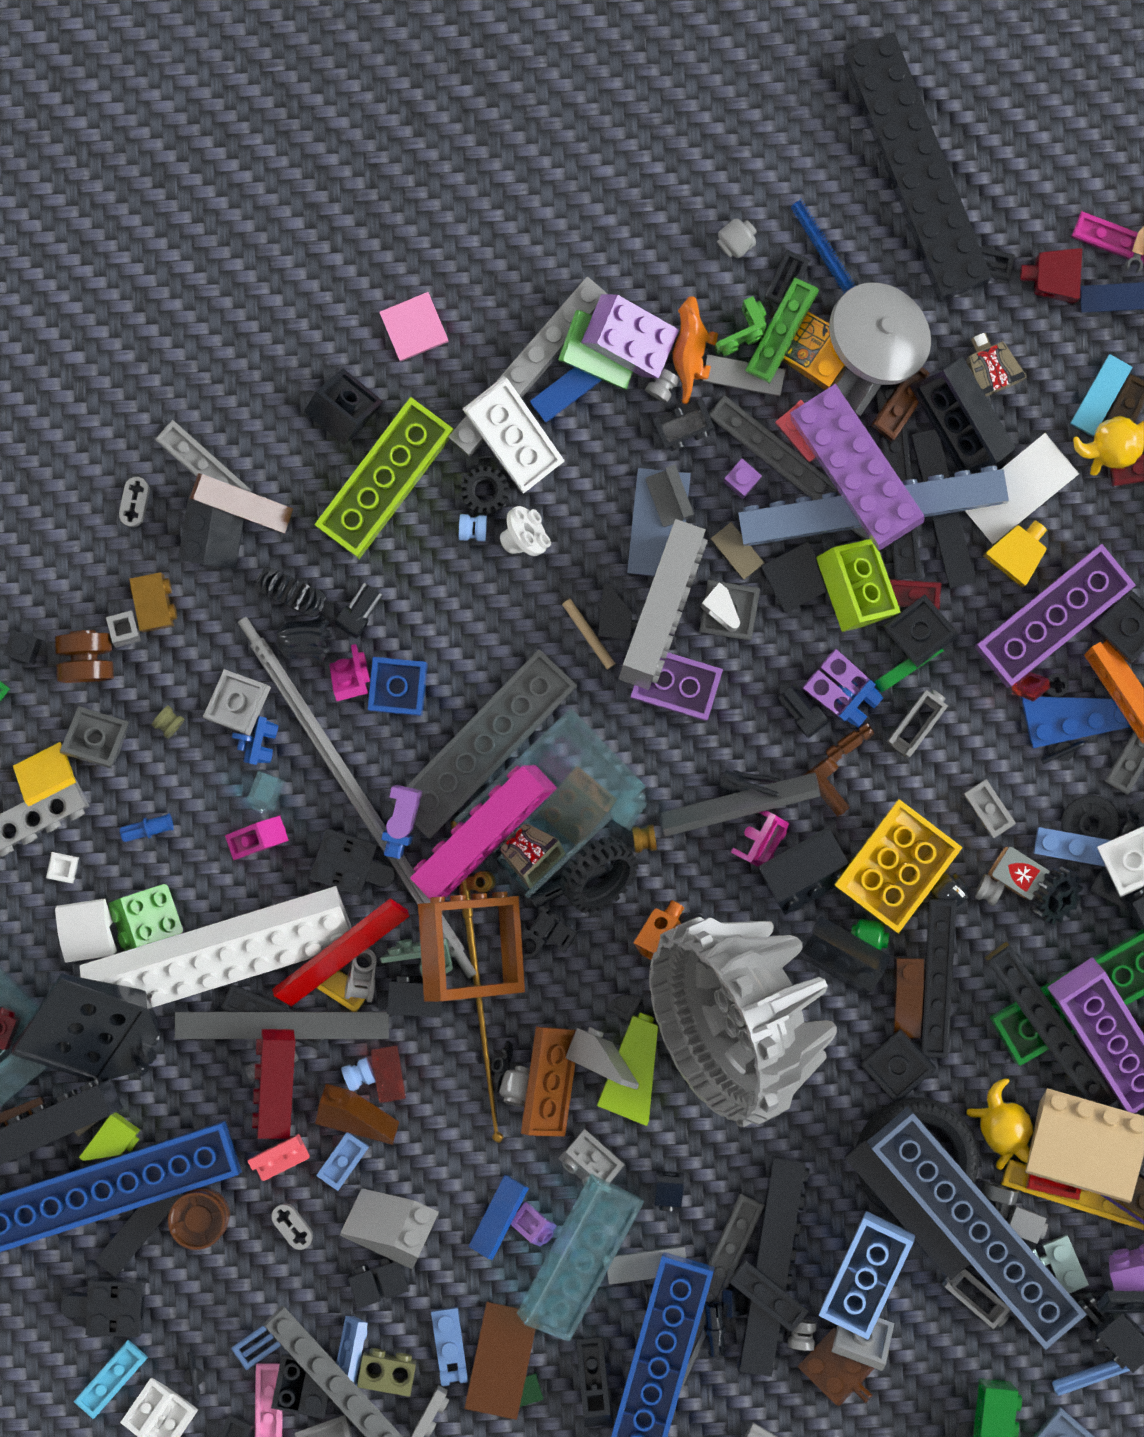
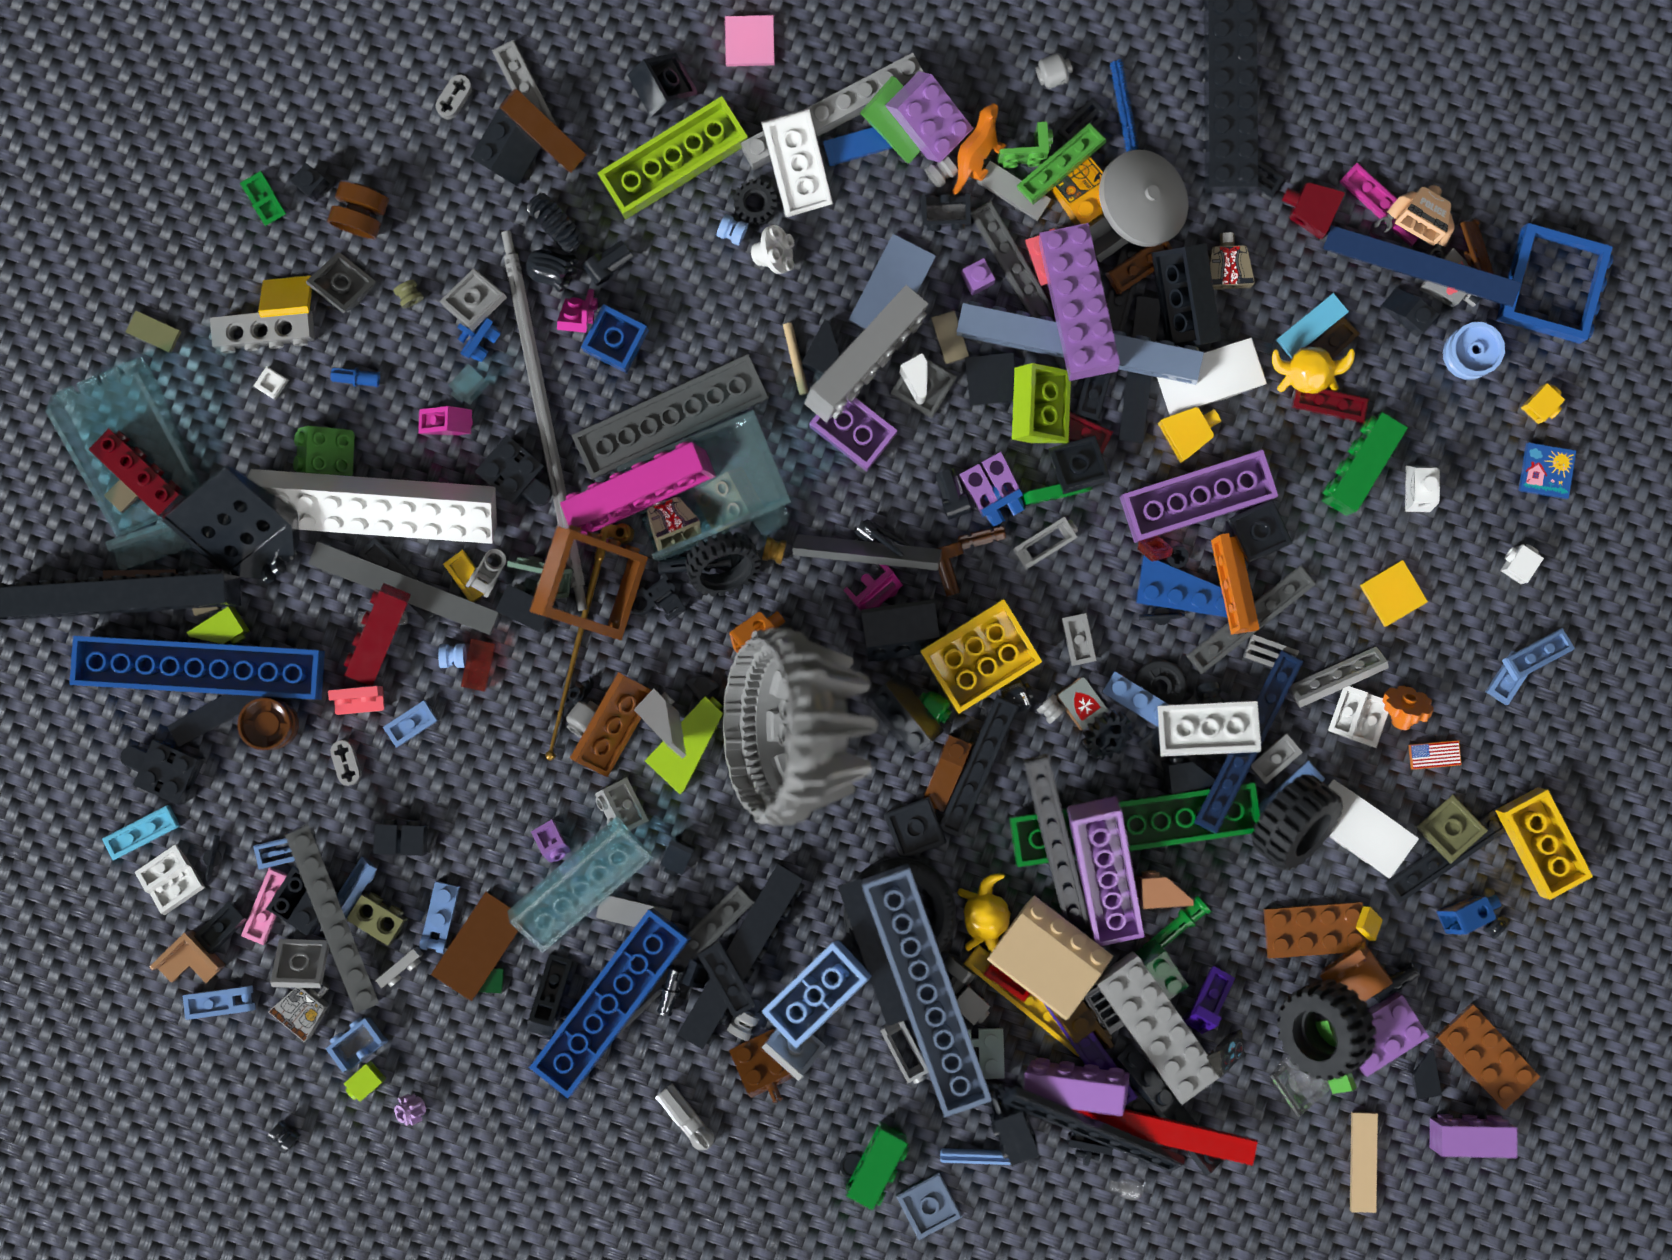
camera: 15 degrees right, 0 degrees up
(85, 930) = (268, 442): white slope -> none
(123, 629) = (401, 199): light grey brick -> none
(153, 602) = (435, 187): pearl gold brick -> none
(340, 952) = (477, 544): red tile -> none
(351, 1113) = (435, 688): reddish brown slope -> none
(389, 1225) = (428, 794): light grey slope -> none
(402, 821) = (573, 452): medium lavender hips -> none
(498, 1217) = (524, 823): blue tile -> none
(669, 496) = (910, 266): dark grey panel -> none

